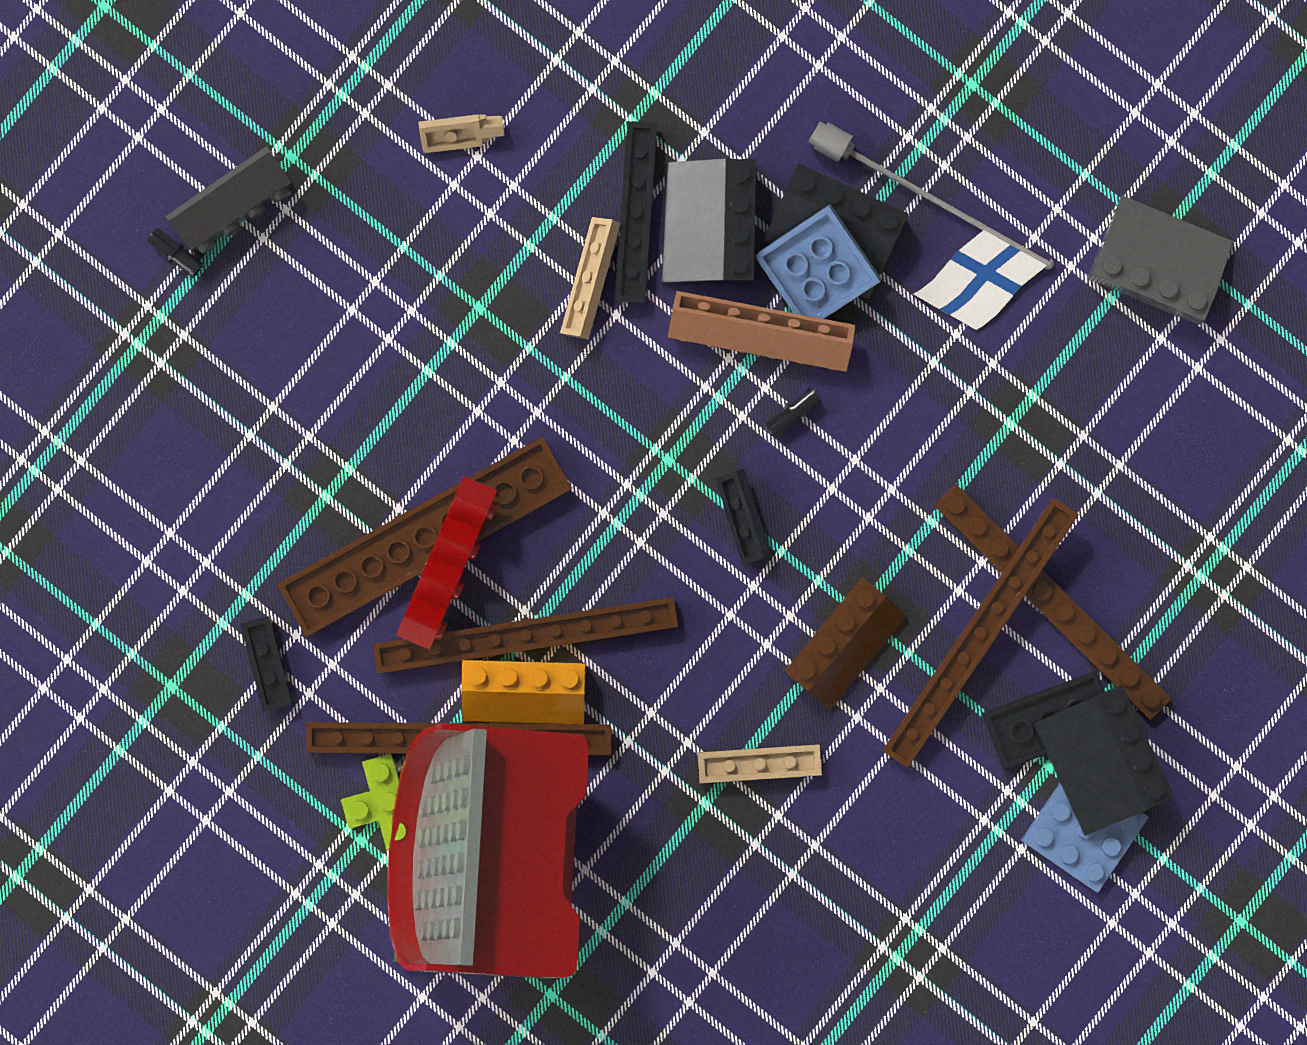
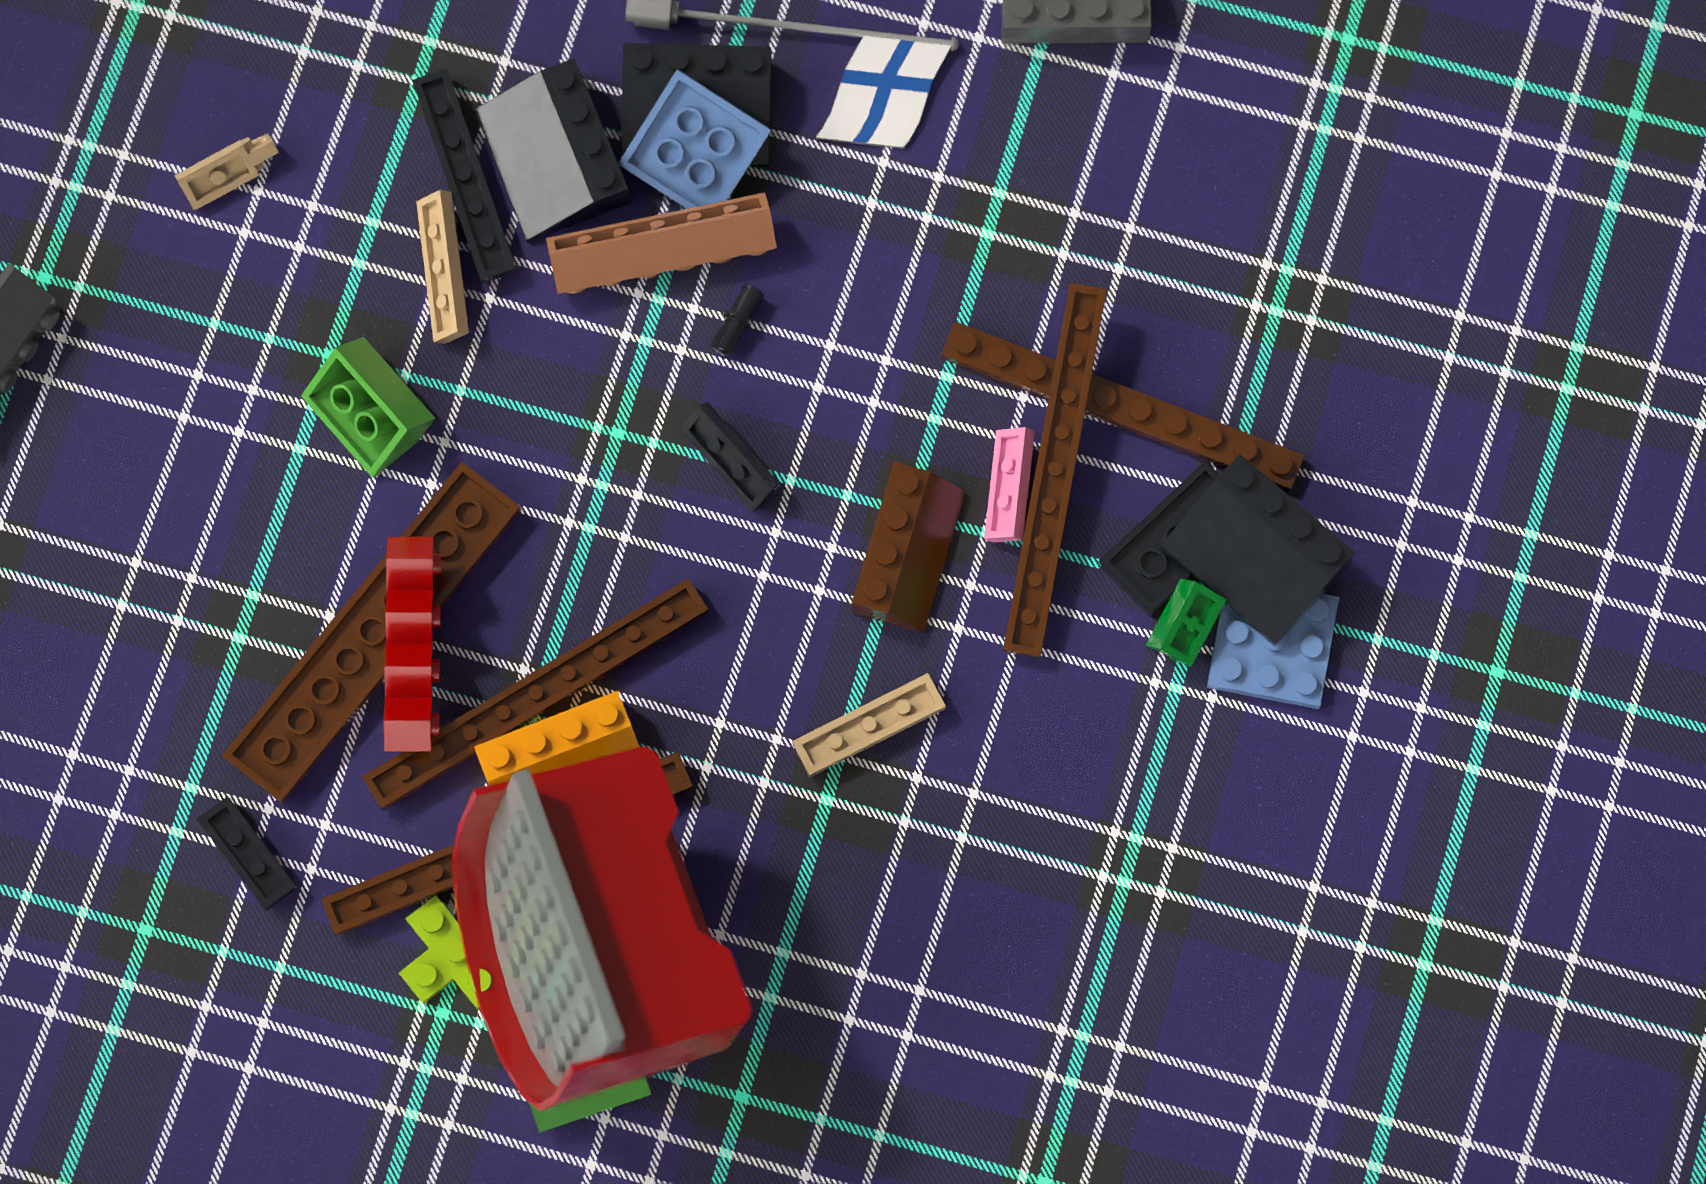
camera: 25 degrees left, 10 degrees down
(490, 362) = (367, 405): none -> bright green slope
(941, 627) = (1009, 485): none -> bright pink plate
(1026, 789) = (1186, 621): none -> green hinge

